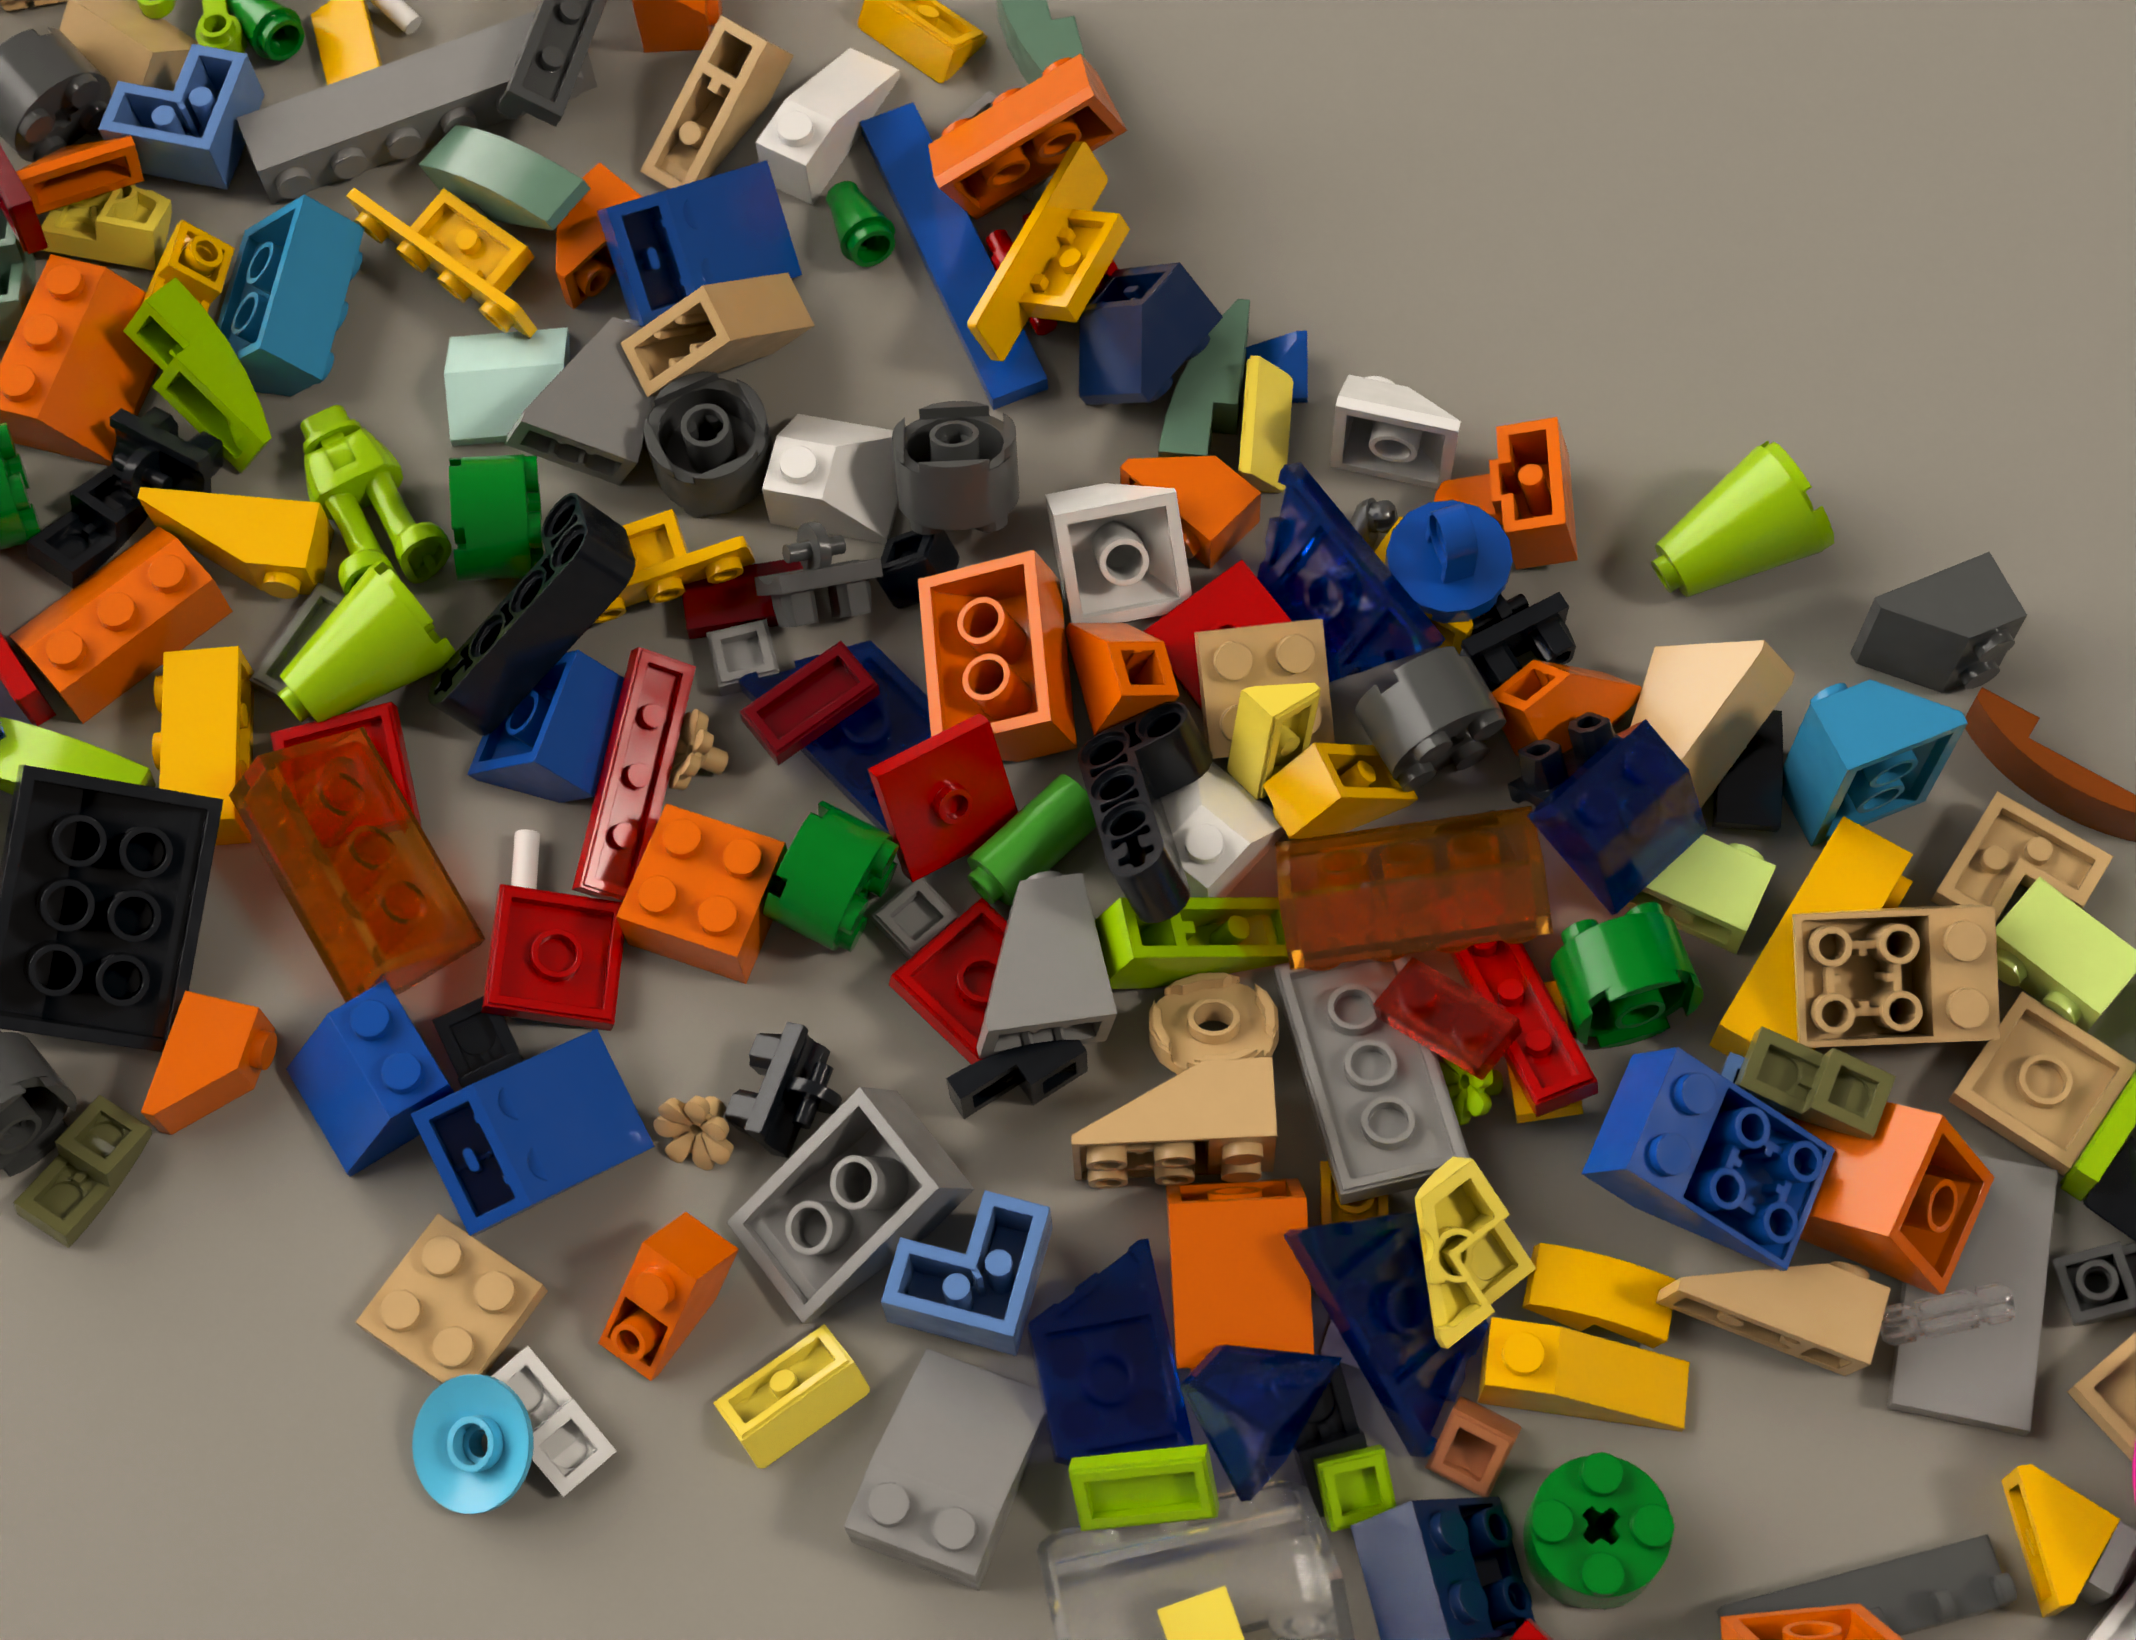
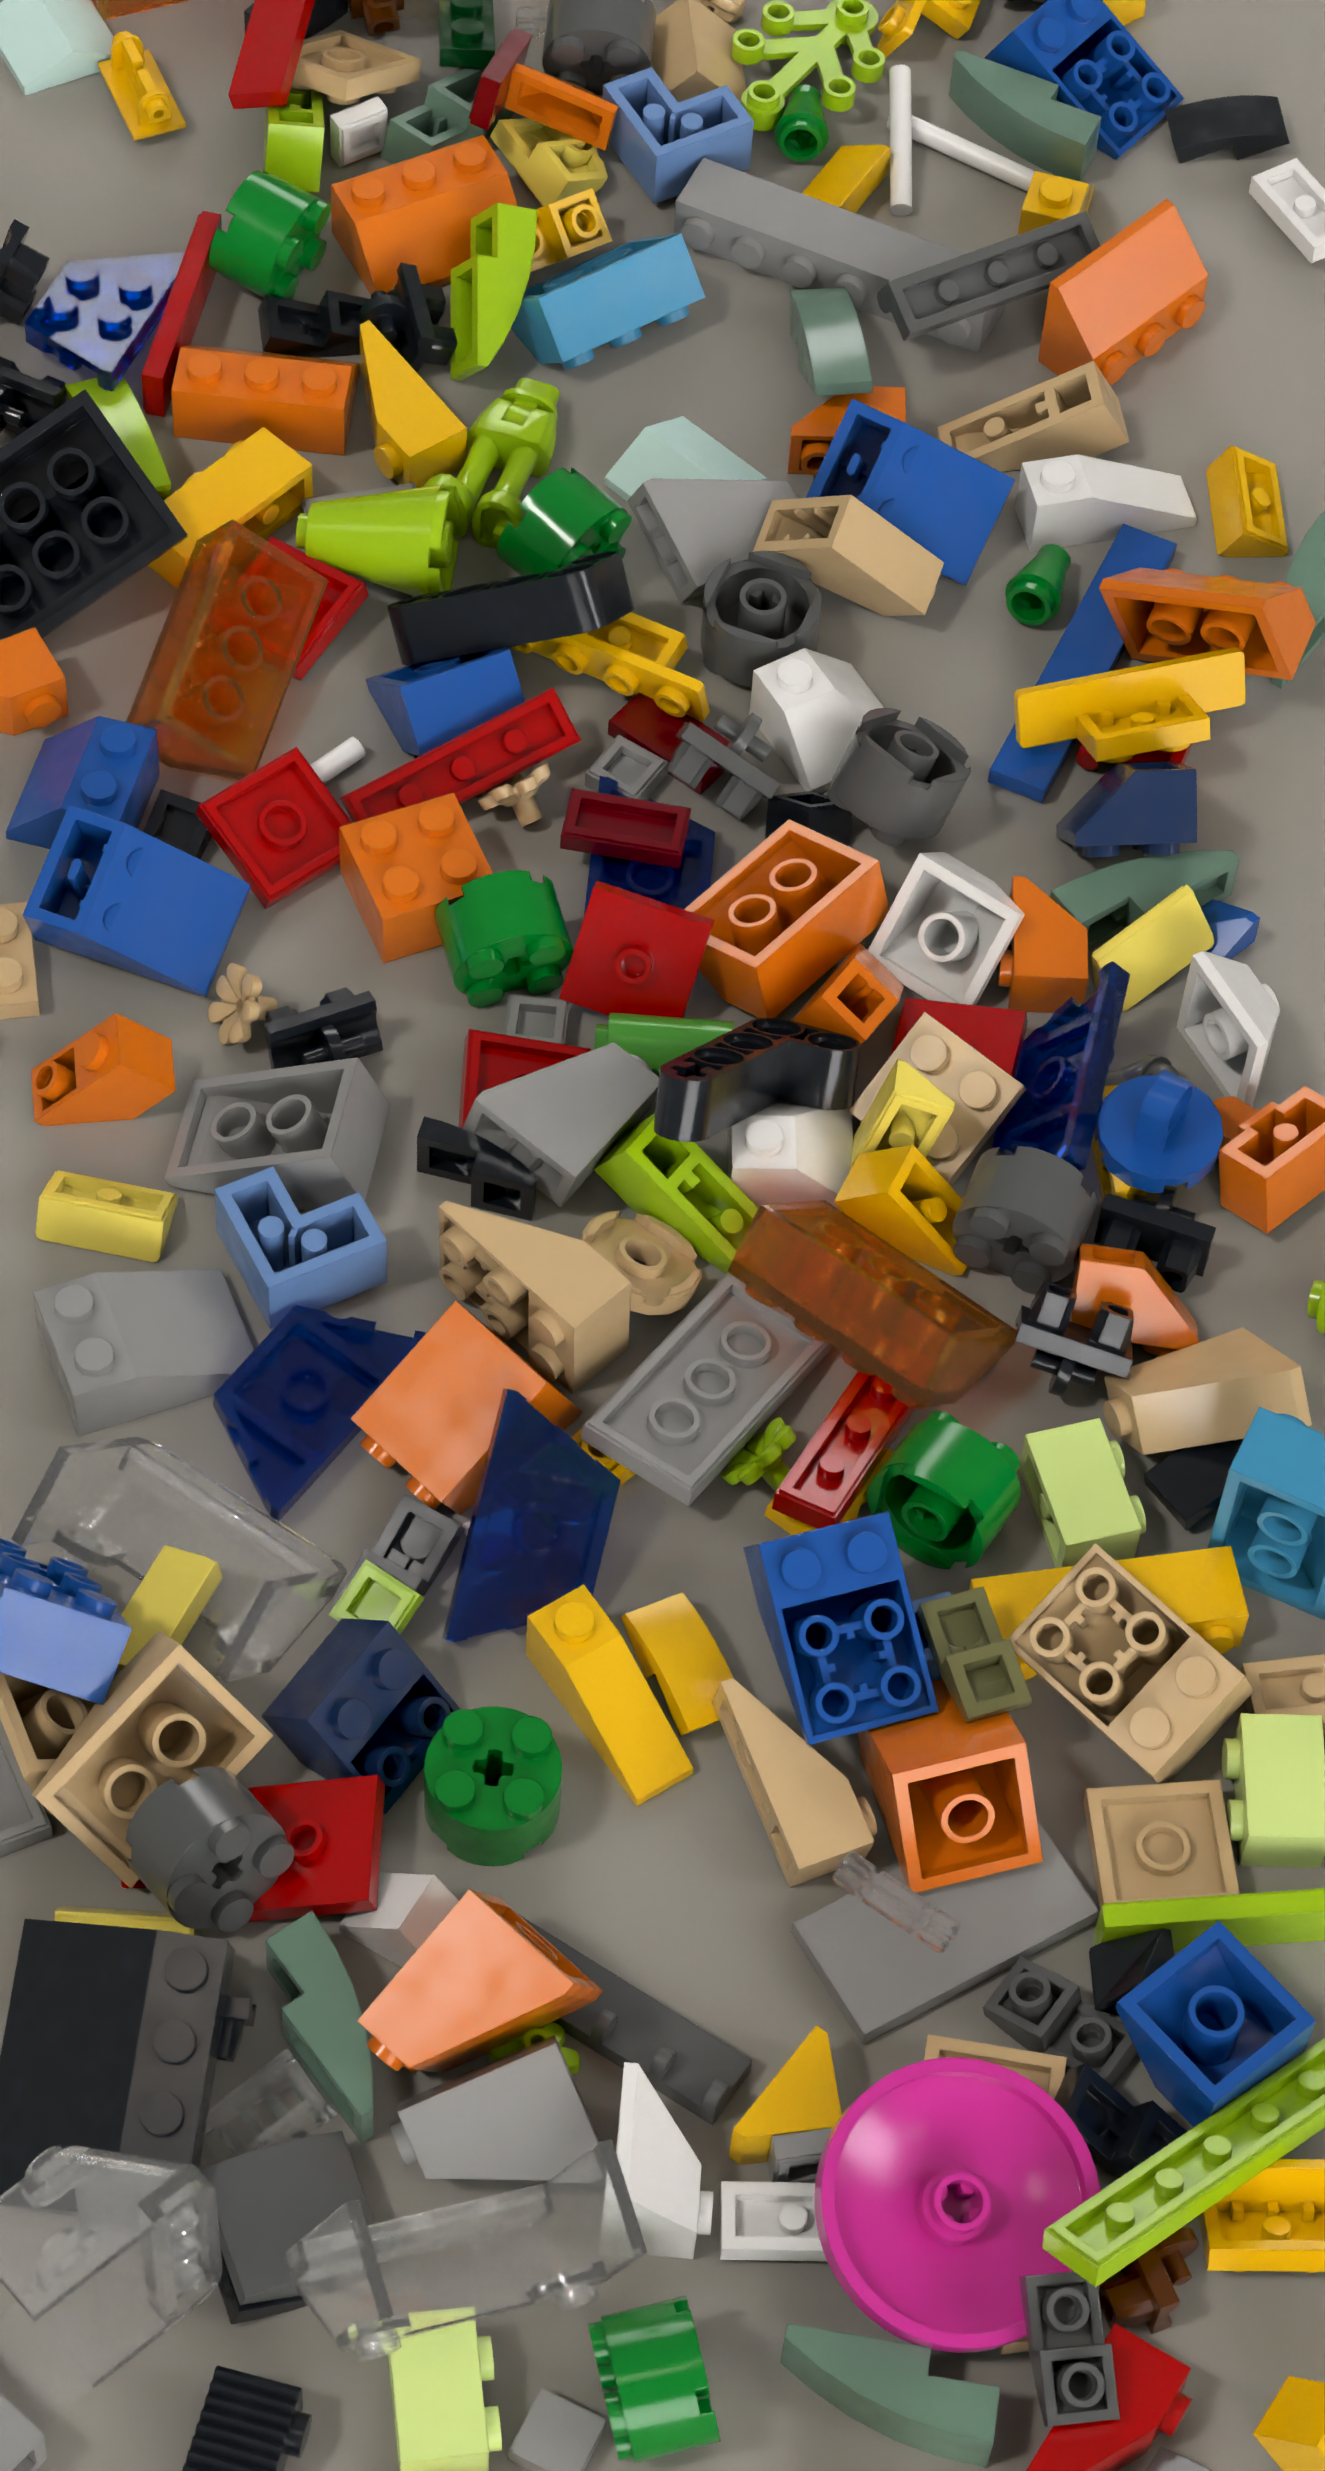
camera: 40 degrees right, 10 degrees down
(462, 247) = (754, 370): yellow bracket -> none
(1144, 1487) = (243, 1465): lime tile -> none
(1255, 1407) = (369, 1490): clear blue slope -> none
(1447, 1018) = (790, 1395): clear red plate -> none
(1465, 1248) = (619, 1532): light yellow slope -> none
(1473, 1447) = (488, 1669): nougat slope -> none
(1623, 815) = (1060, 1379): clear blue slope -> none

